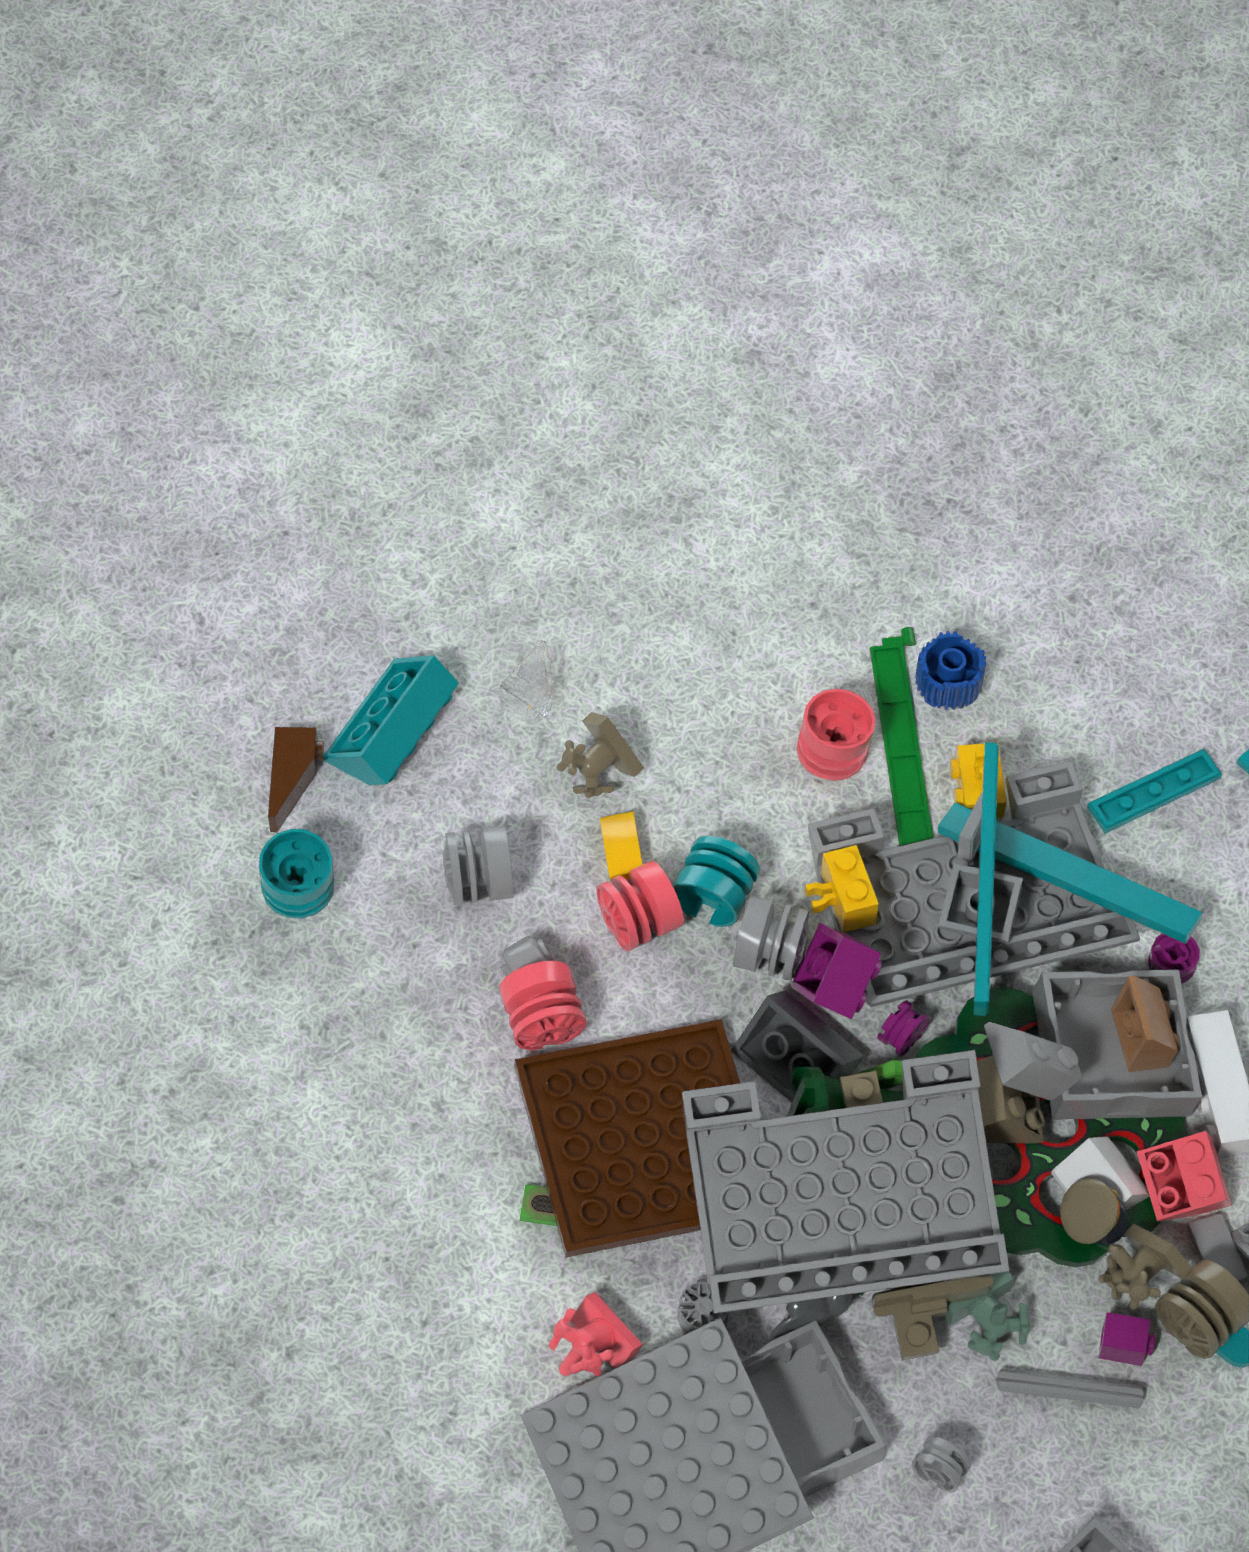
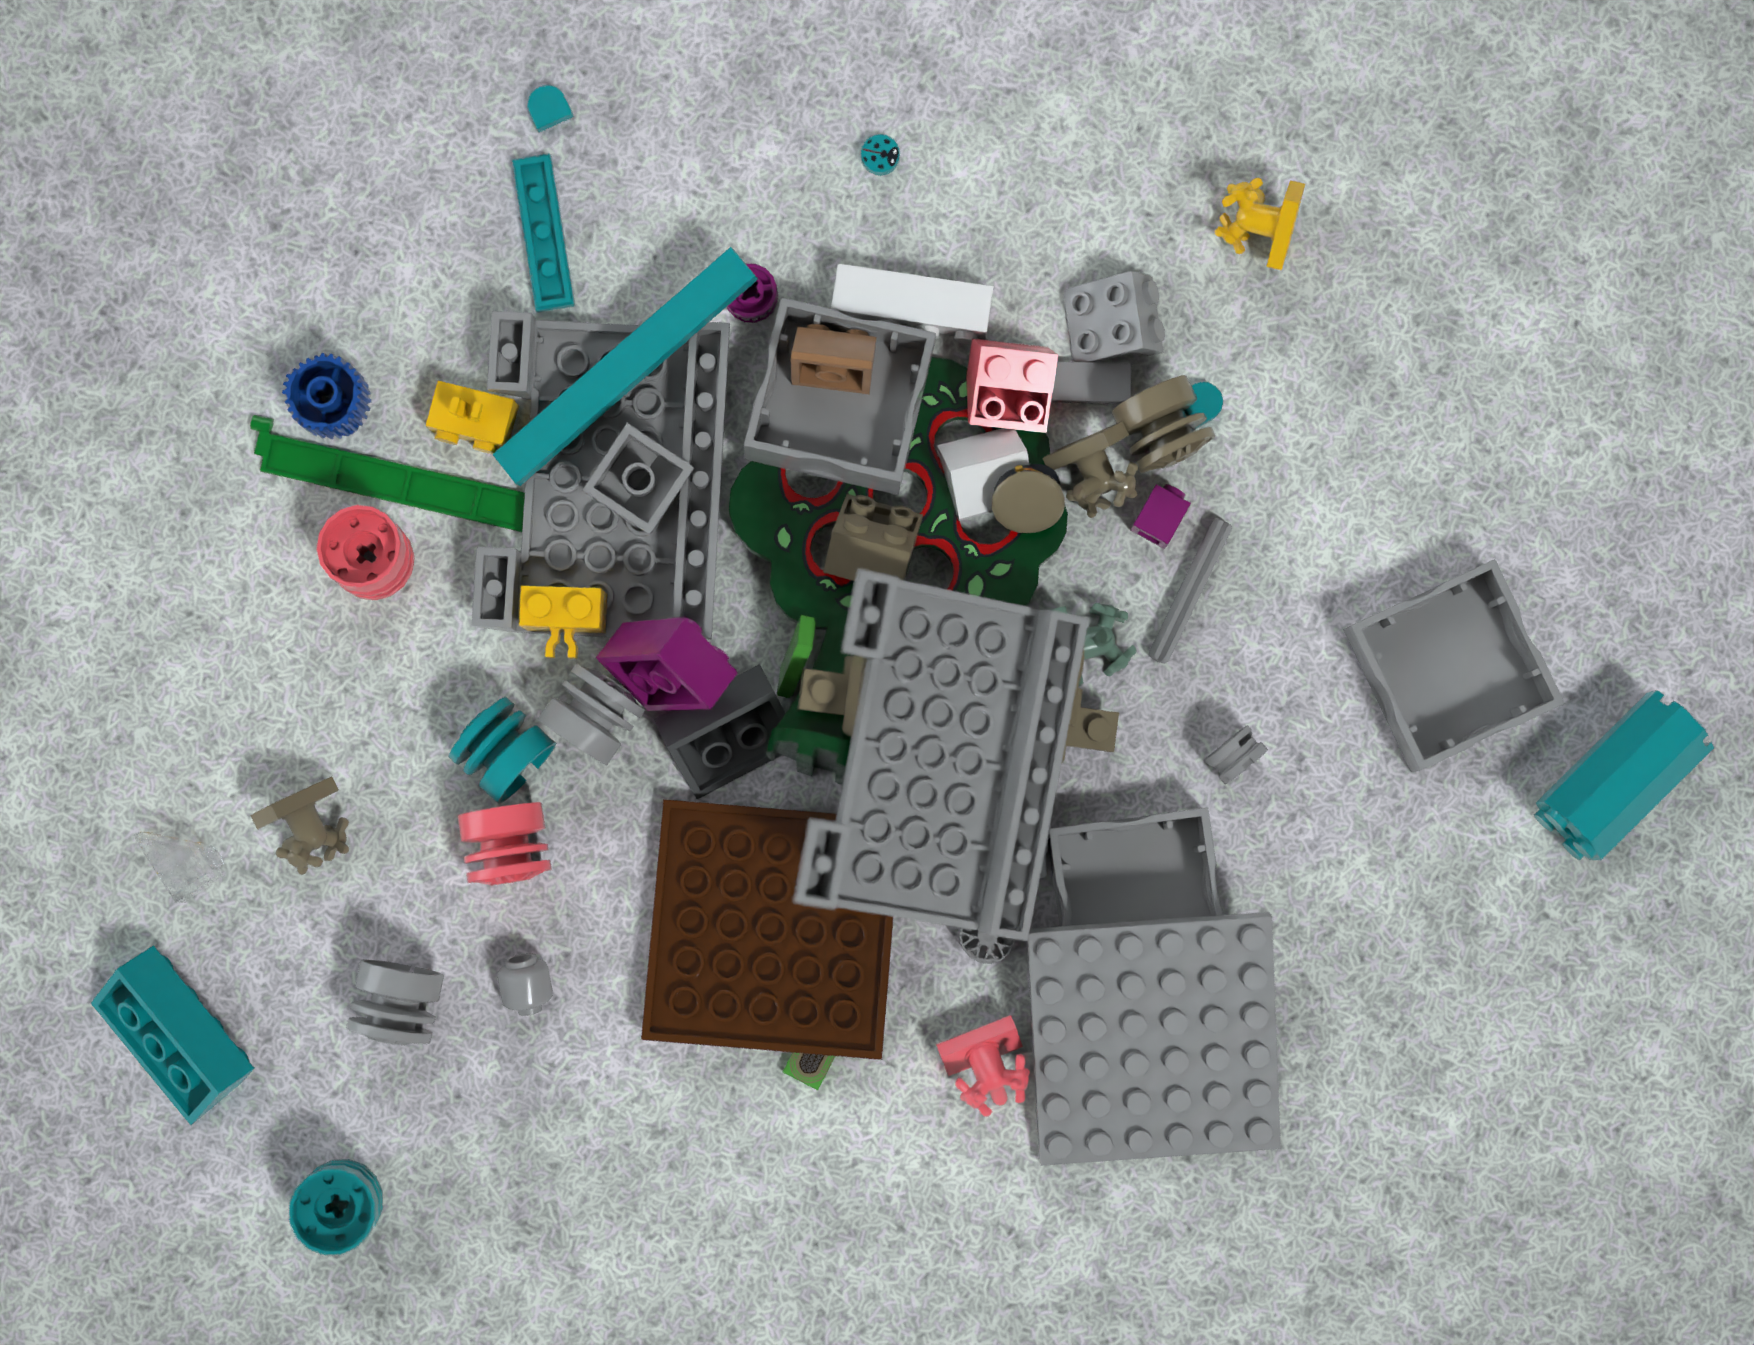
camera: 65 degrees left, 25 degrees up
(292, 771) = (197, 1165): reddish brown slope -> none
(542, 1005) = (589, 989): coral wheel -> none
(621, 844) = (417, 832): yellow slope -> none
(904, 1028) = (740, 610): magenta wheel -> none
(970, 835) = (537, 443): light grey tile -> none
(986, 879) = (617, 463): teal tile -> none
(1032, 1062) = (849, 499): light grey slope -> none

